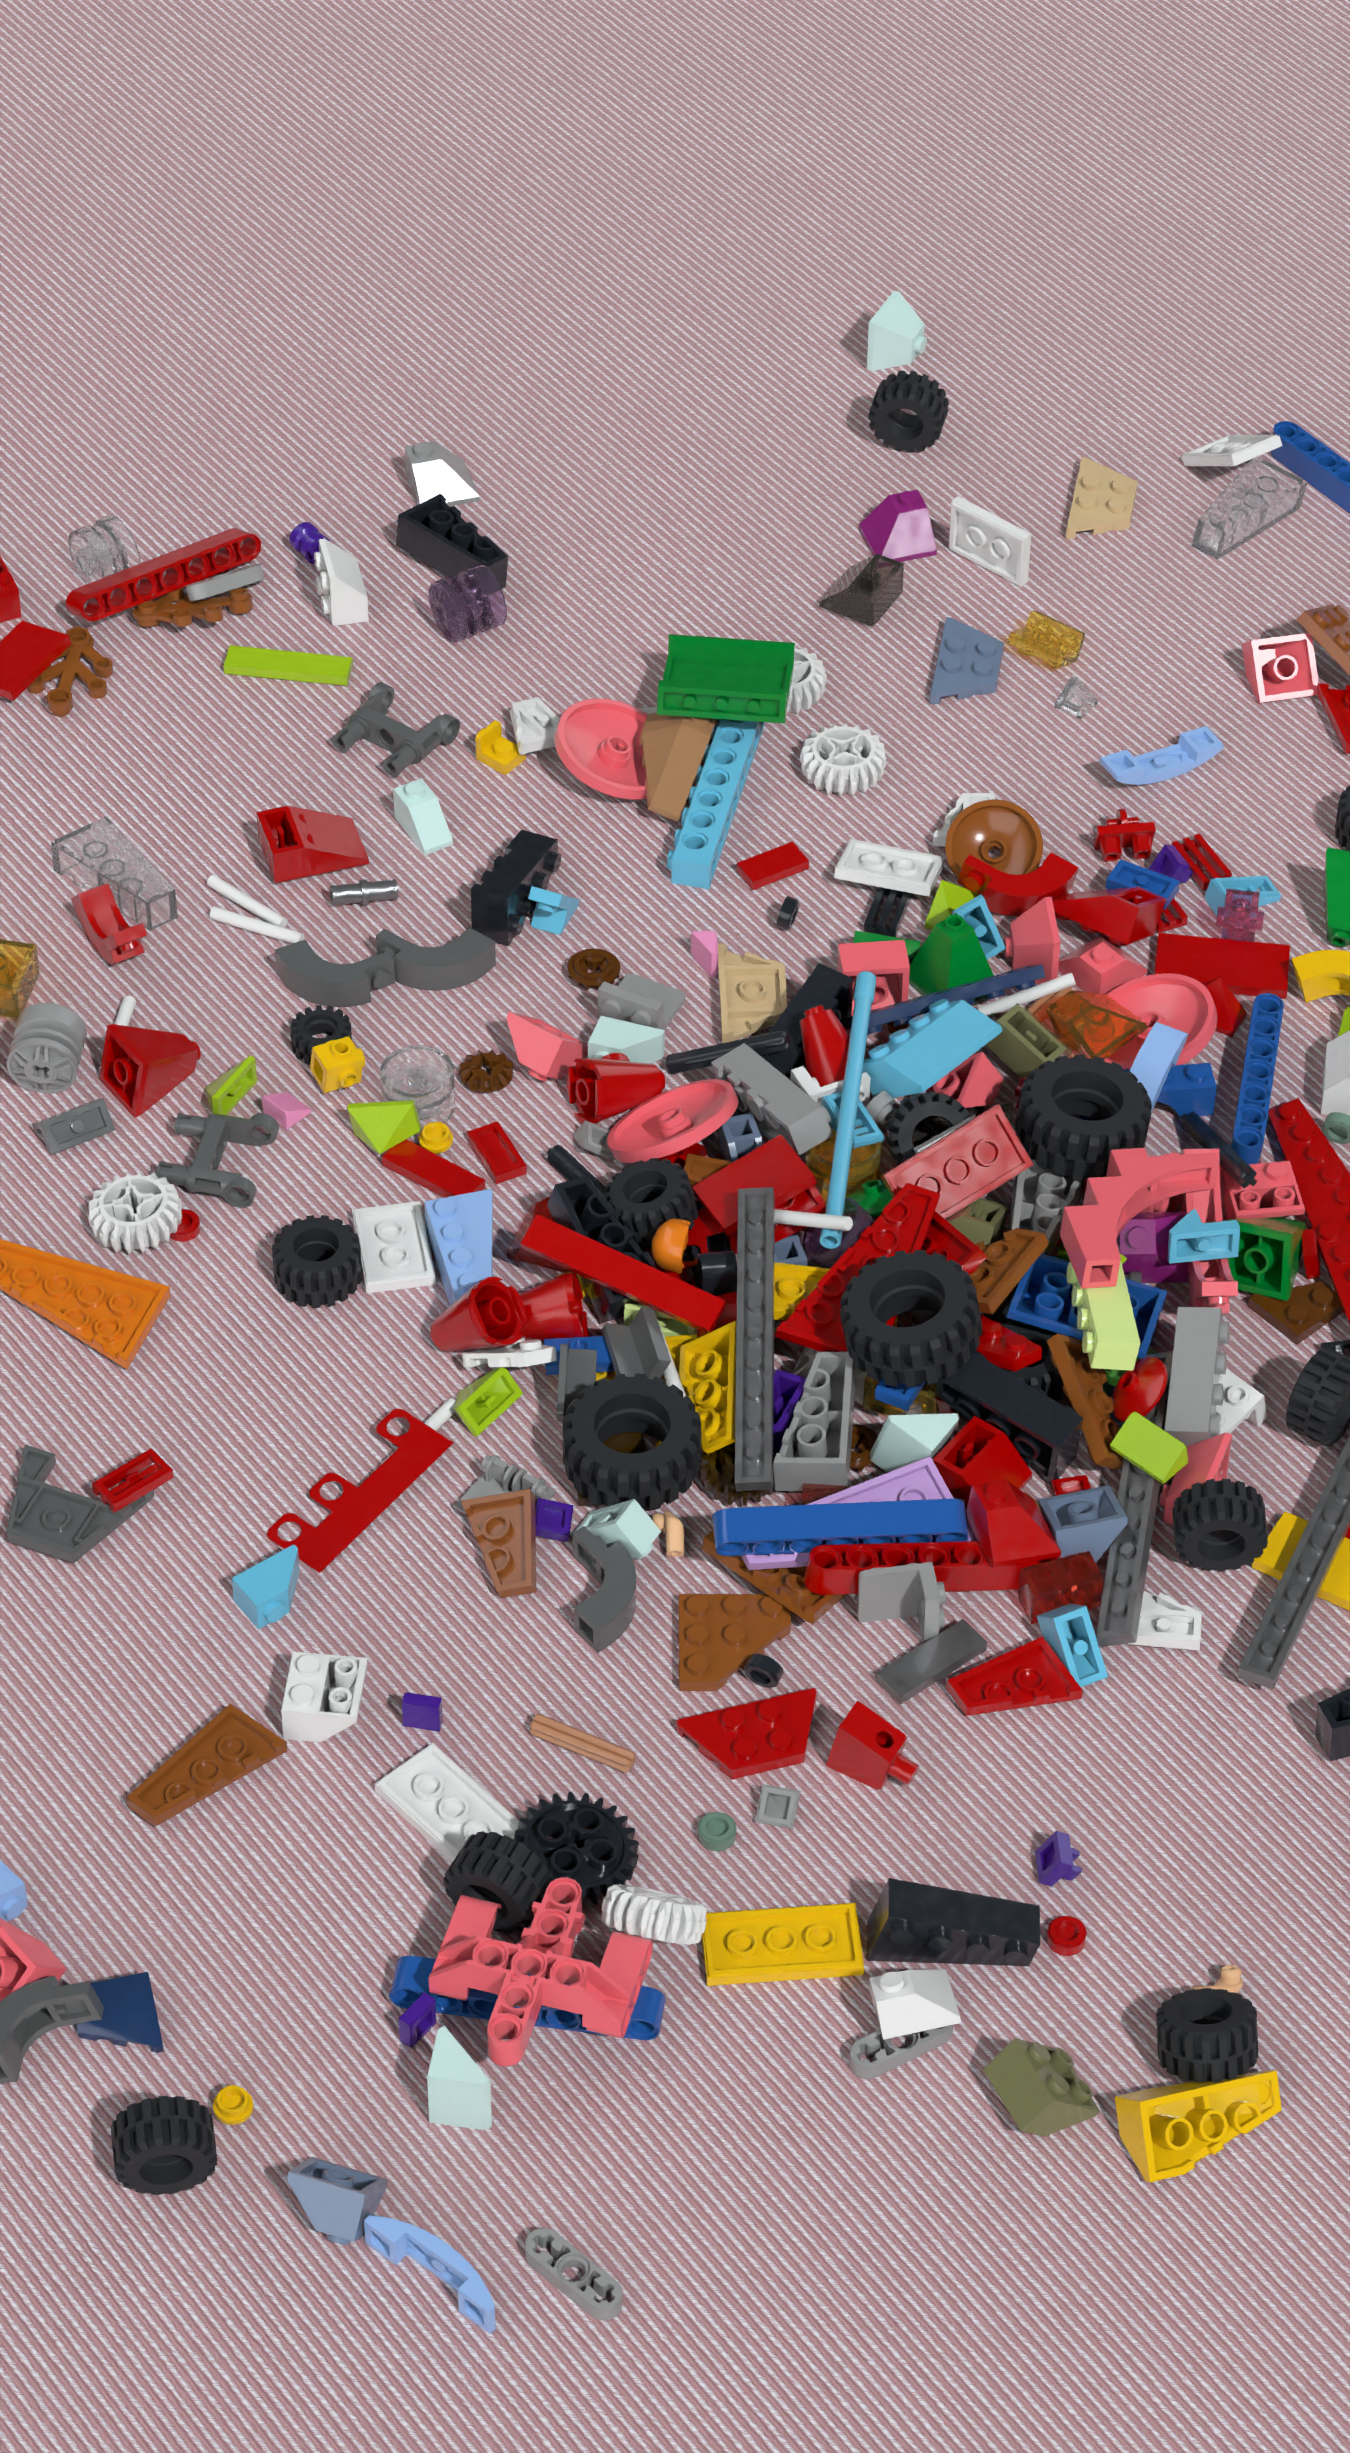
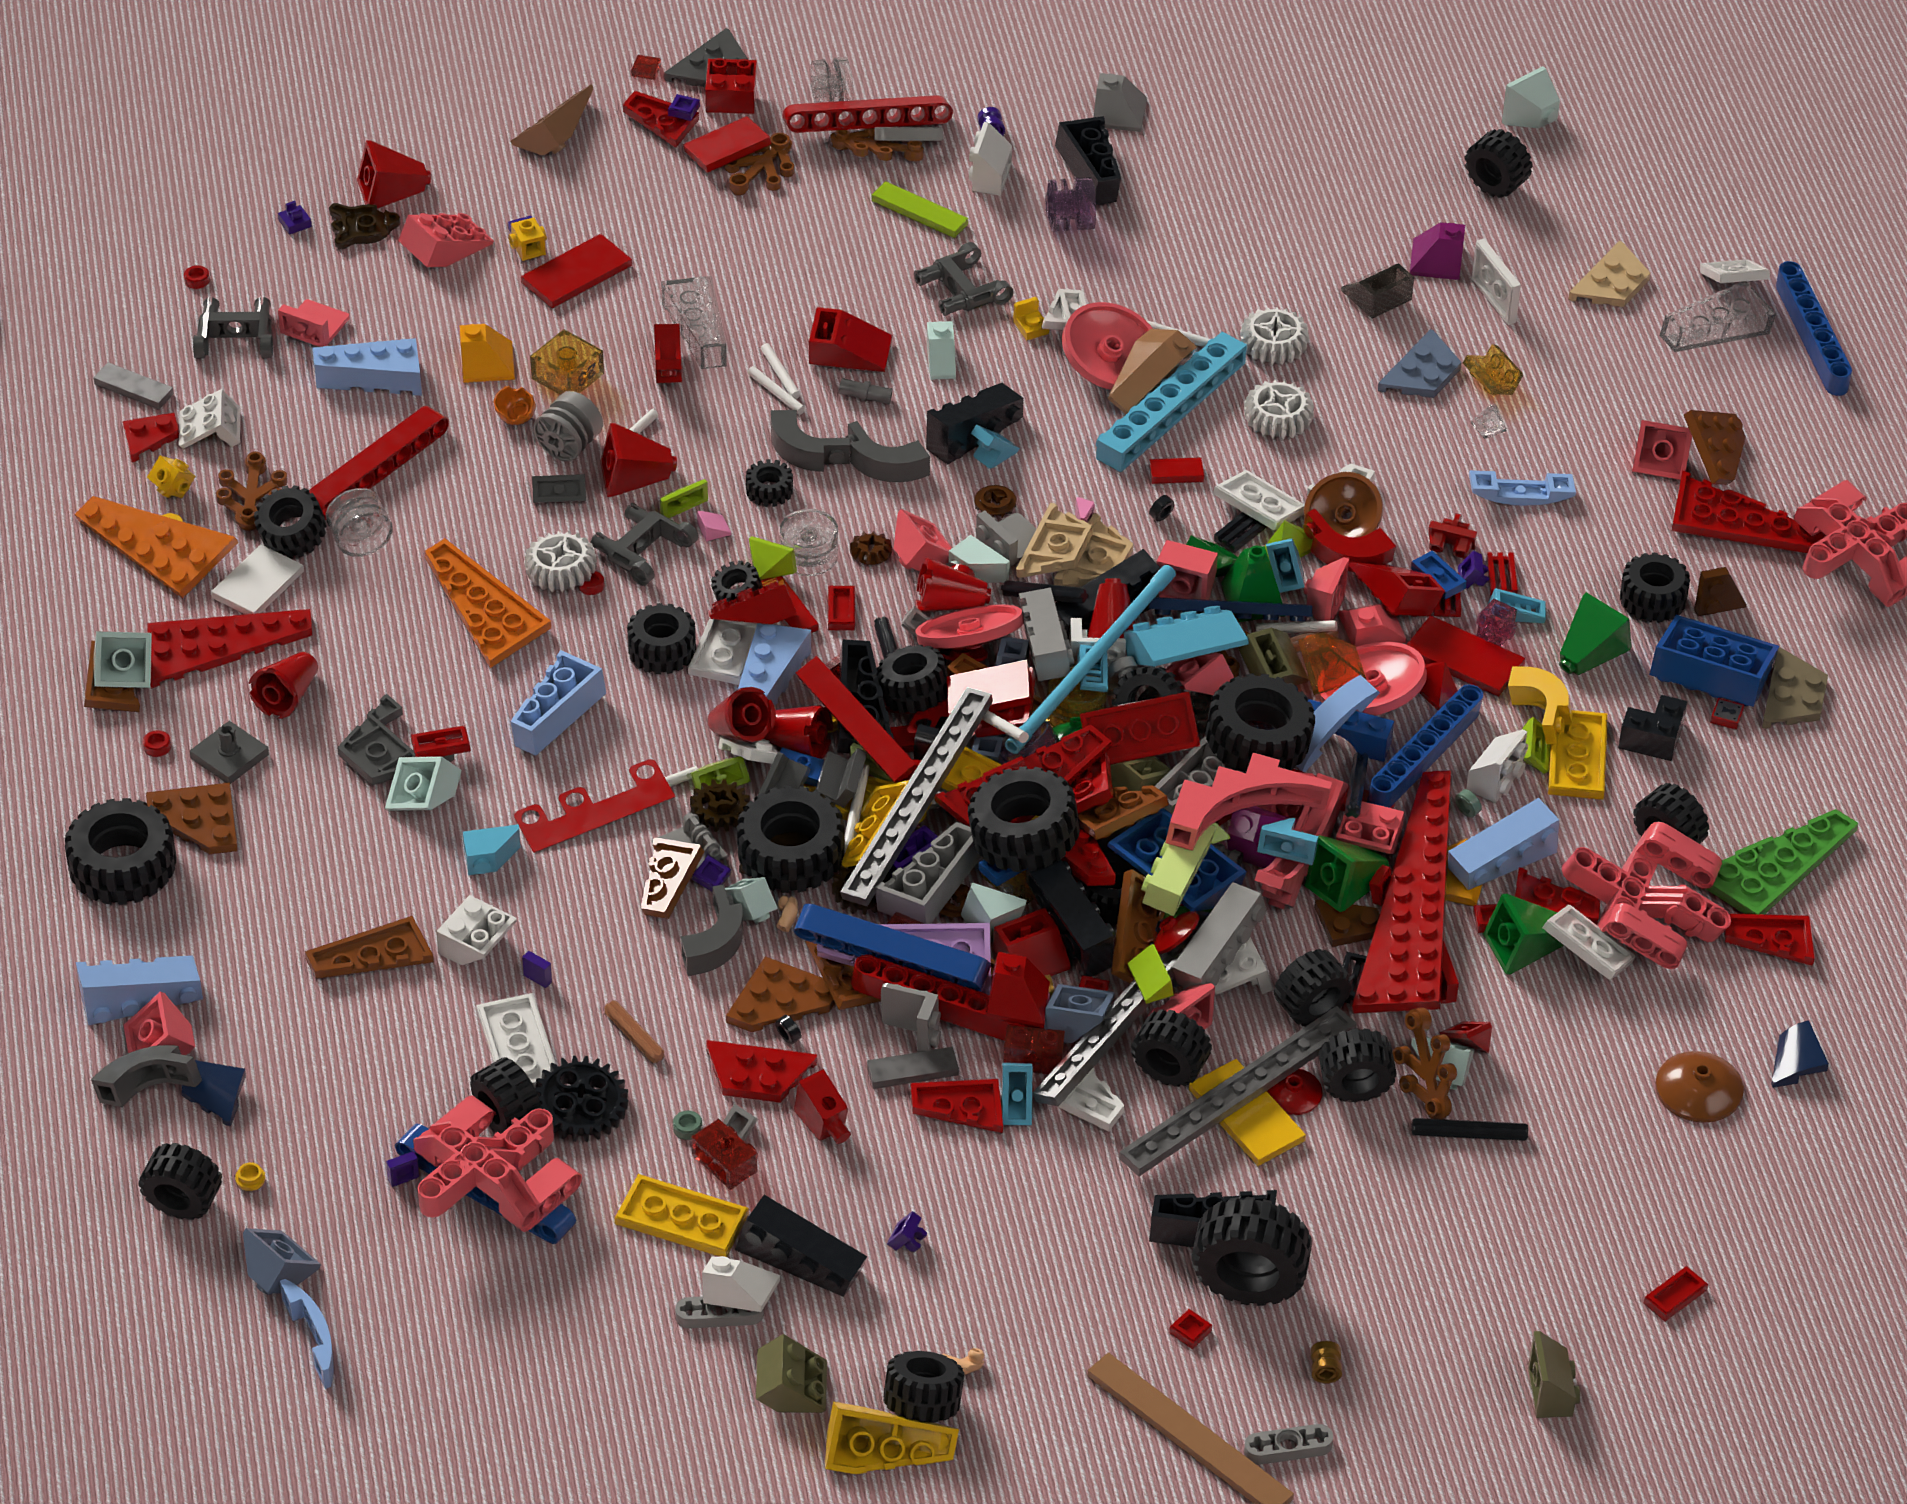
camera: 25 degrees right, 0 degrees up
(140, 1539) = (422, 783): none -> light aqua slope
(243, 1376) = (557, 702): none -> light blue wedge
(337, 1064) = (764, 506): yellow brick -> none
(368, 1183) = (732, 575): none -> black tyre
(424, 1176) = (762, 606): none -> red slope
(436, 1137) = (803, 582): yellow plate -> none
(457, 2086) = (391, 1219): light aqua slope -> none
(512, 1433) = (719, 804): none -> dark brown gear
(577, 2291) = (399, 1383): light grey beam -> none
(654, 1914) = (597, 1159): white gear -> none
(670, 1244) = (906, 712): orange hair -> none
(702, 993) = (1055, 544): none -> tan wing
(726, 679) = (1218, 321): green panel -> none
(787, 1849) = (724, 1153): none -> clear red brick
(1066, 1935) = (881, 1286): red tile -> none

